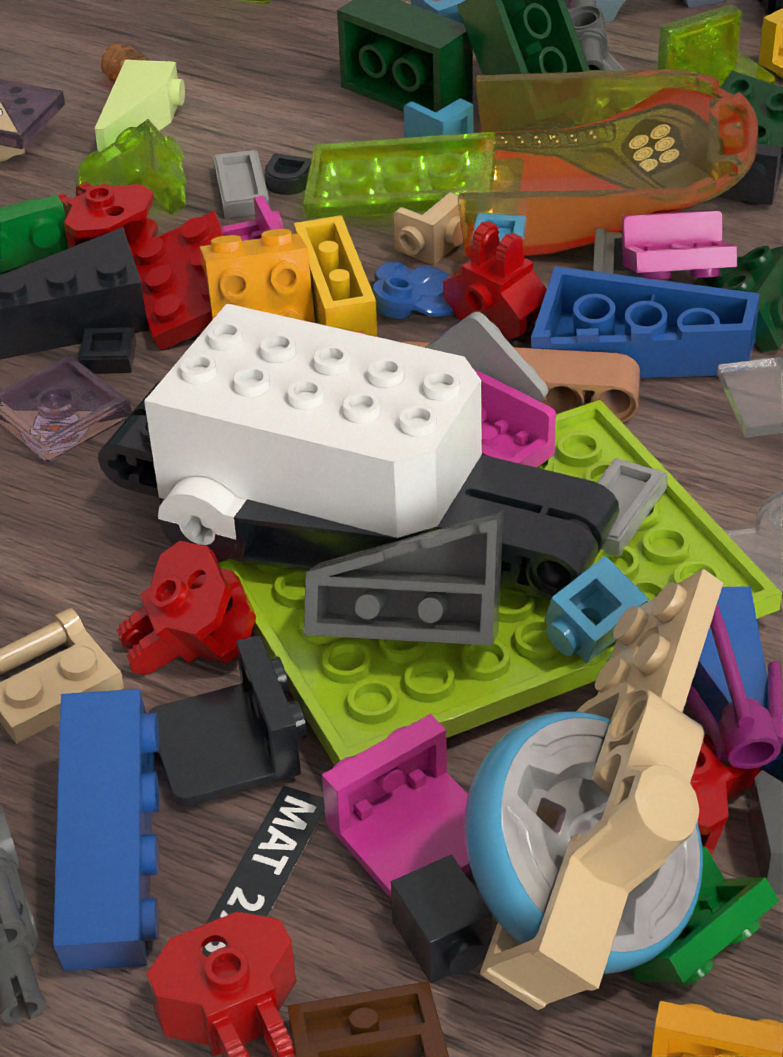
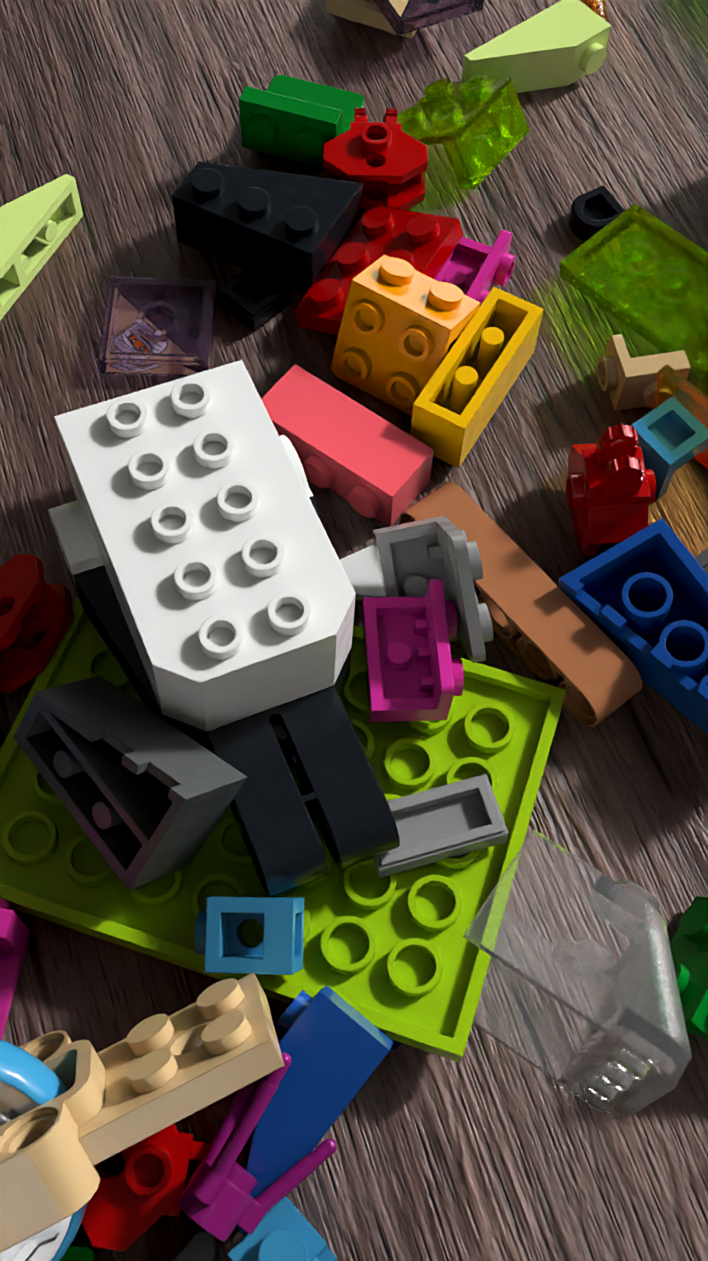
camera: 40 degrees right, 20 degrees up
(239, 181) = (545, 198): light grey tile -> none
(404, 290) = (555, 426): blue plate -> none

